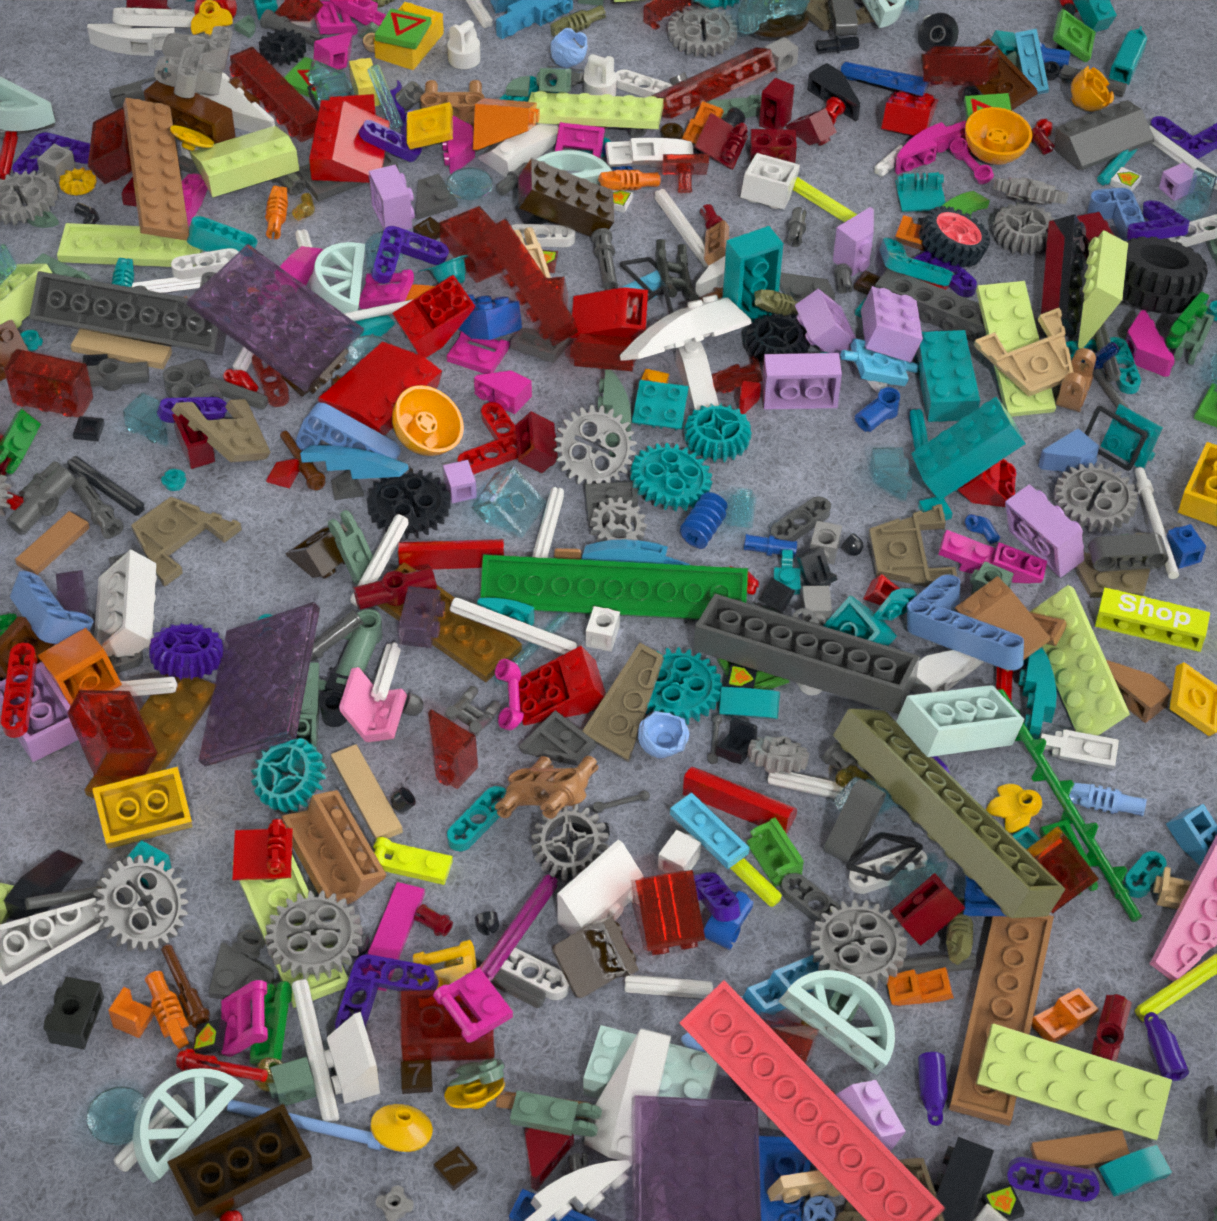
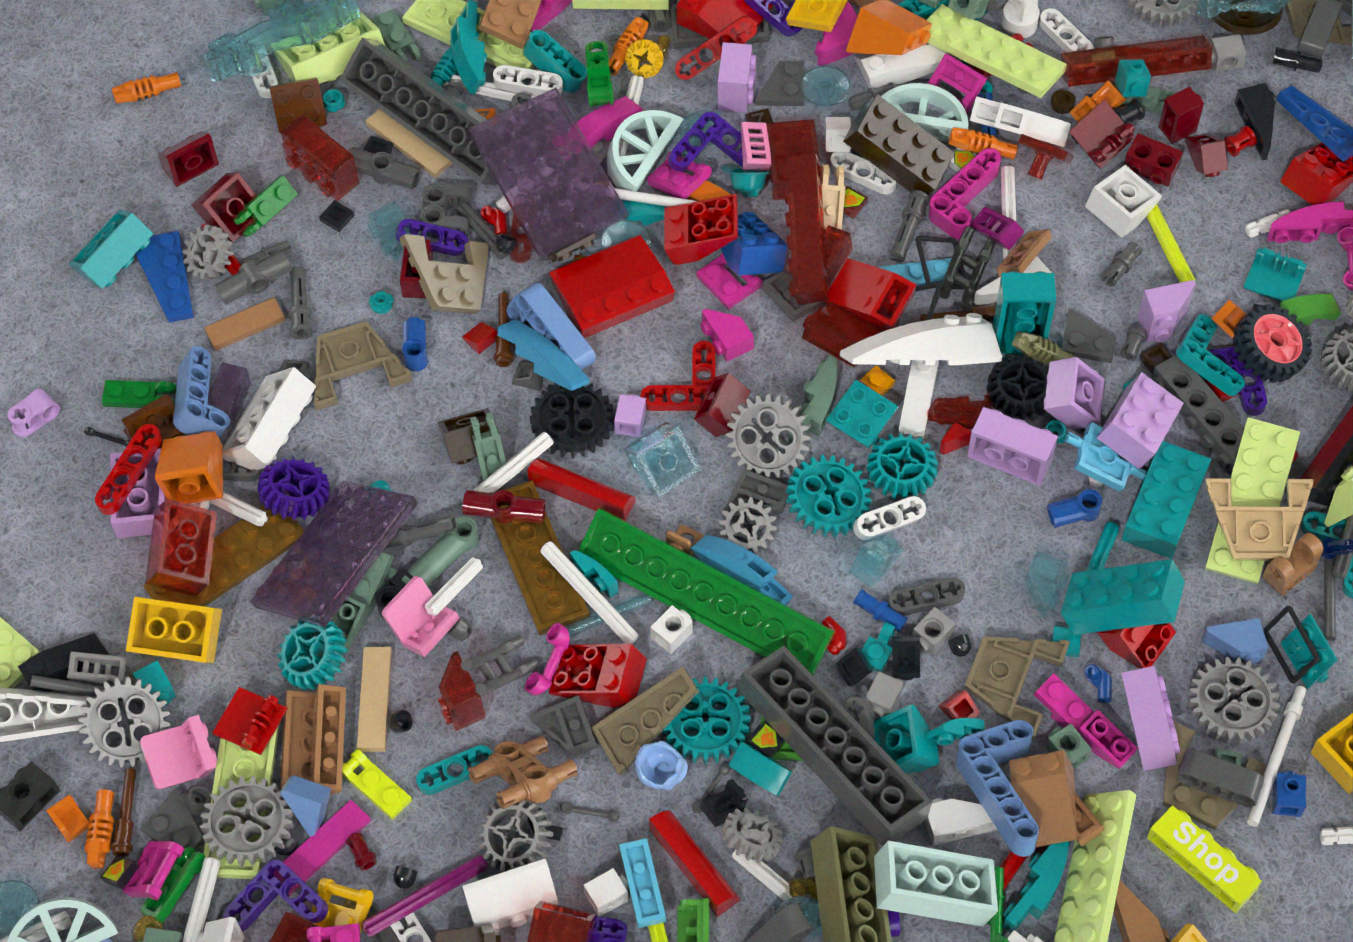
camera: 30 degrees right, 10 degrees up
(90, 864) = (109, 661): none -> light grey slope
(106, 485) = (320, 283): black axle -> none
(137, 256) = (467, 50): none -> teal slope
(190, 1060) = (92, 886): red pin -> none
(212, 908) = (179, 754): none -> bright pink bracket
(227, 498) = (414, 344): none -> blue piece
(261, 389) = (505, 242): none -> black hinge
(272, 238) = (598, 72): none -> green piece
(292, 205) = (655, 57): none -> yellow gear
(357, 181) = (713, 44): none -> red beam
(363, 893) = (306, 801): none -> medium blue slope
(420, 617) = (509, 546): clear purple brick -> none
(427, 421) = (643, 341): light orange piece -> none
(440, 248) = (750, 163): none -> bright pink slope
(505, 208) = (835, 132): none -> white brick
(548, 523) = (685, 498): white axle -> none
(629, 232) = (954, 205): none -> dark pink beam
(694, 232) = (999, 228): none -> magenta slope
(704, 520) = (829, 556): blue piece -> none
(710, 217) = (1041, 217): dark red pin -> none
(722, 91) = (1133, 78): none -> teal brick
(735, 465) = (883, 527): none -> white beam

